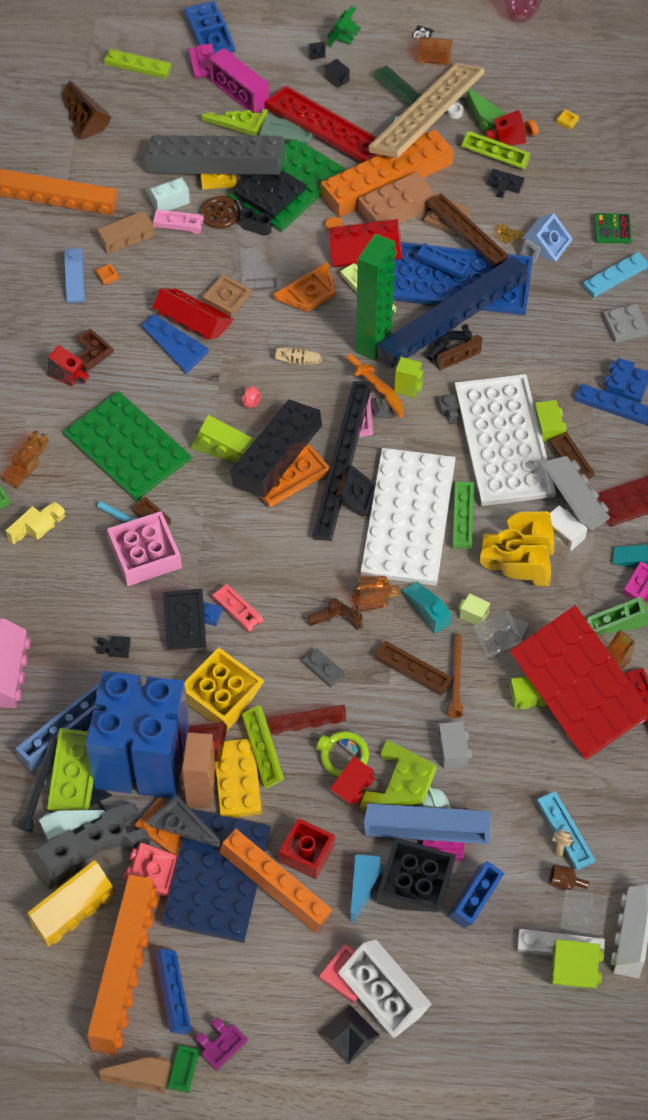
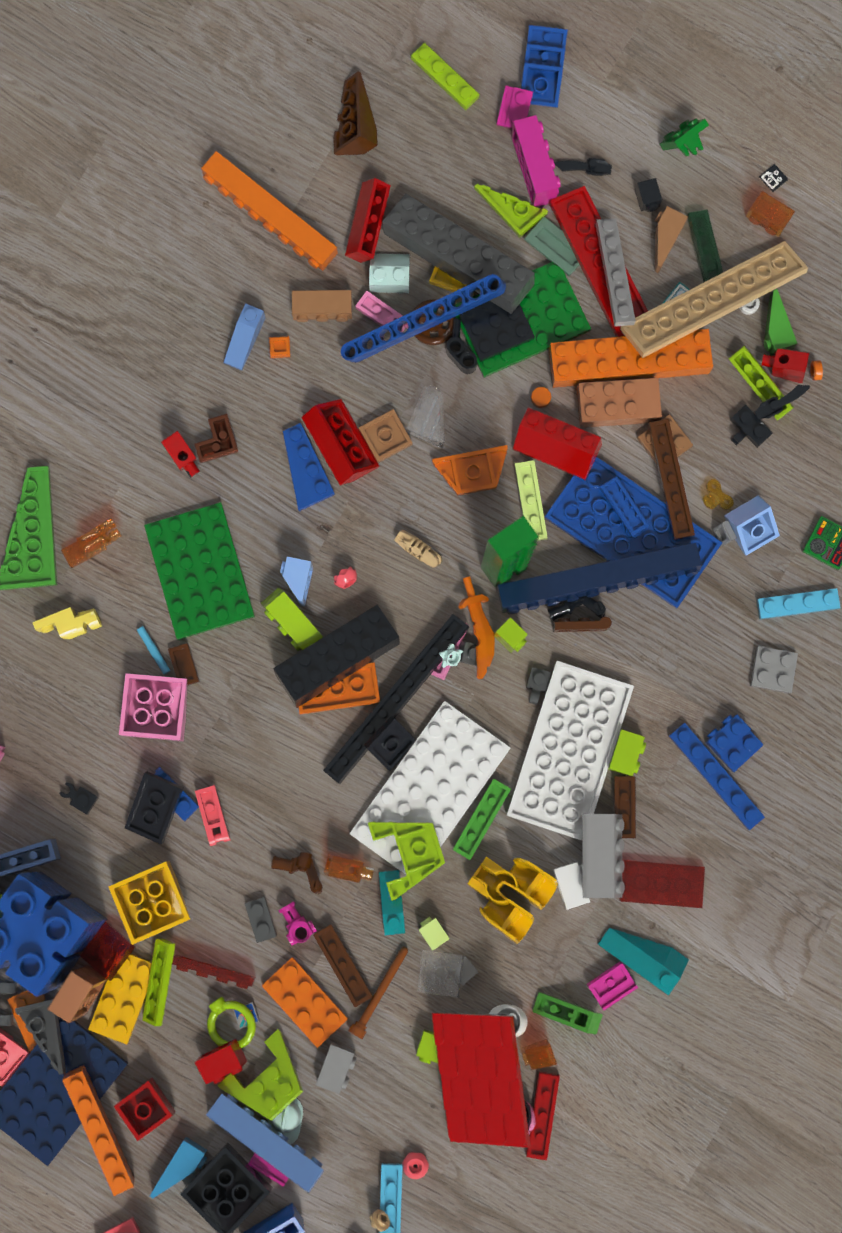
camera: 25 degrees right, 25 degrees up
(131, 165) = (367, 220): none -> red brick
(210, 403) = (297, 576): none -> light blue slope
(214, 192) = (432, 318): none -> blue beam
(283, 74) = (592, 167): none -> black piece
(317, 50) = (643, 152): black plate -> none
(343, 120) = (615, 272): none -> light grey plate
(356, 652) = (293, 924): none -> dark pink connector
(365, 90) = (666, 233): none -> medium nougat slope
(369, 409) = (454, 659): none -> light aqua plate
(397, 711) = (305, 1002): none -> orange plate
(424, 551) = (417, 848): none -> lime wing
(514, 156) = (774, 406): none -> black piece
(570, 795) = (422, 1165): none -> coral plate

